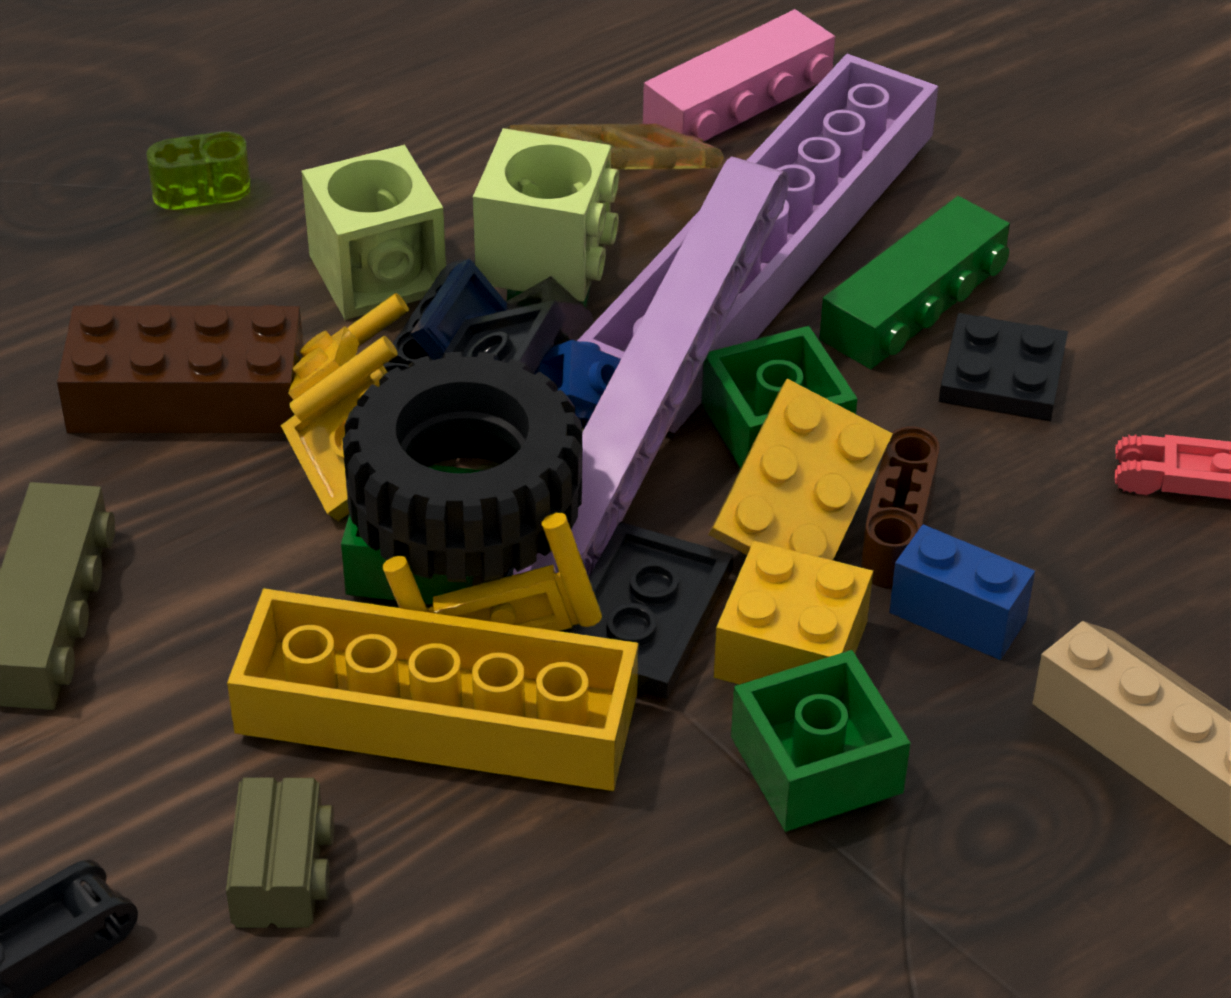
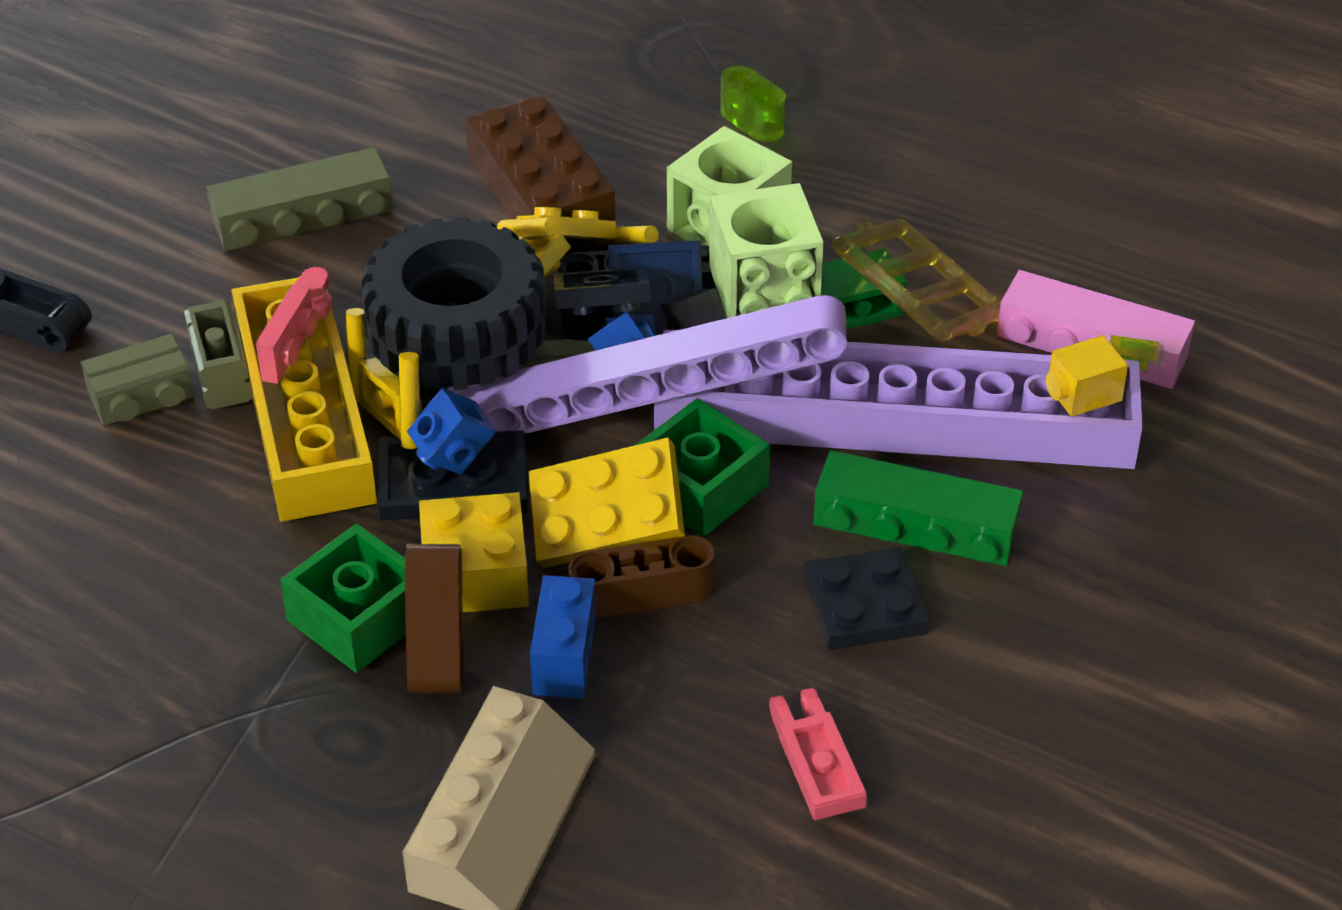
camera: 65 degrees right, 0 degrees up
(306, 740) = (218, 354): none -> olive brick
(371, 629) = (292, 322): none -> coral hinge
(622, 539) = (450, 432): none -> blue brick
(823, 54) = (1138, 350): none -> clear neon green plate
(872, 80) = (1086, 376): none -> yellow brick
(916, 668) = (434, 618): none -> reddish brown beam

